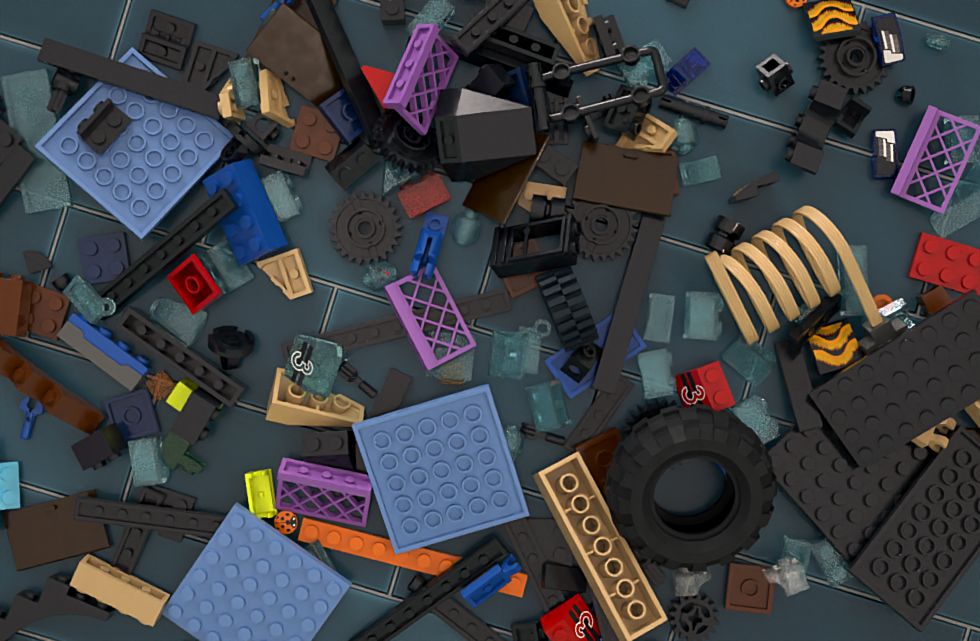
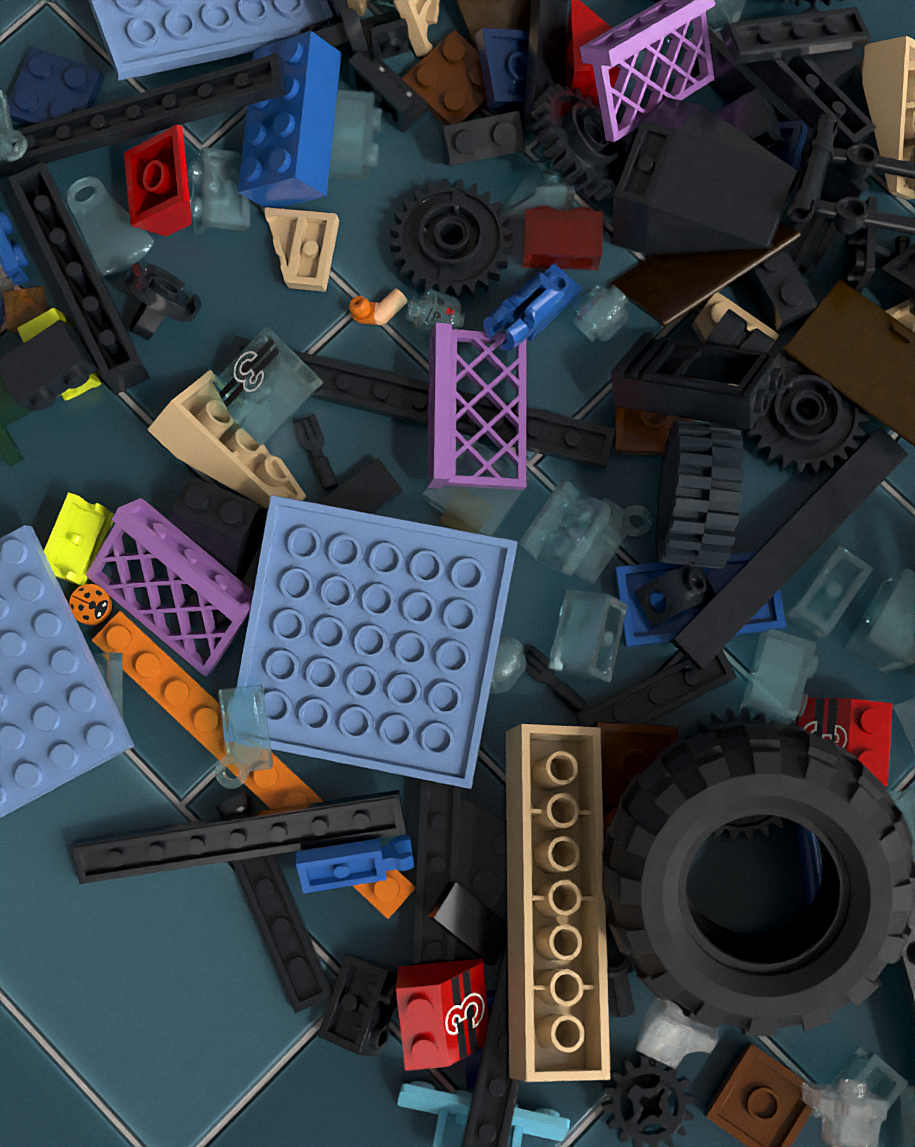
camera: 25 degrees right, 10 degrees down
(347, 288) = (377, 313): none -> arm
(402, 547) = (244, 733): none -> clear light blue hinge

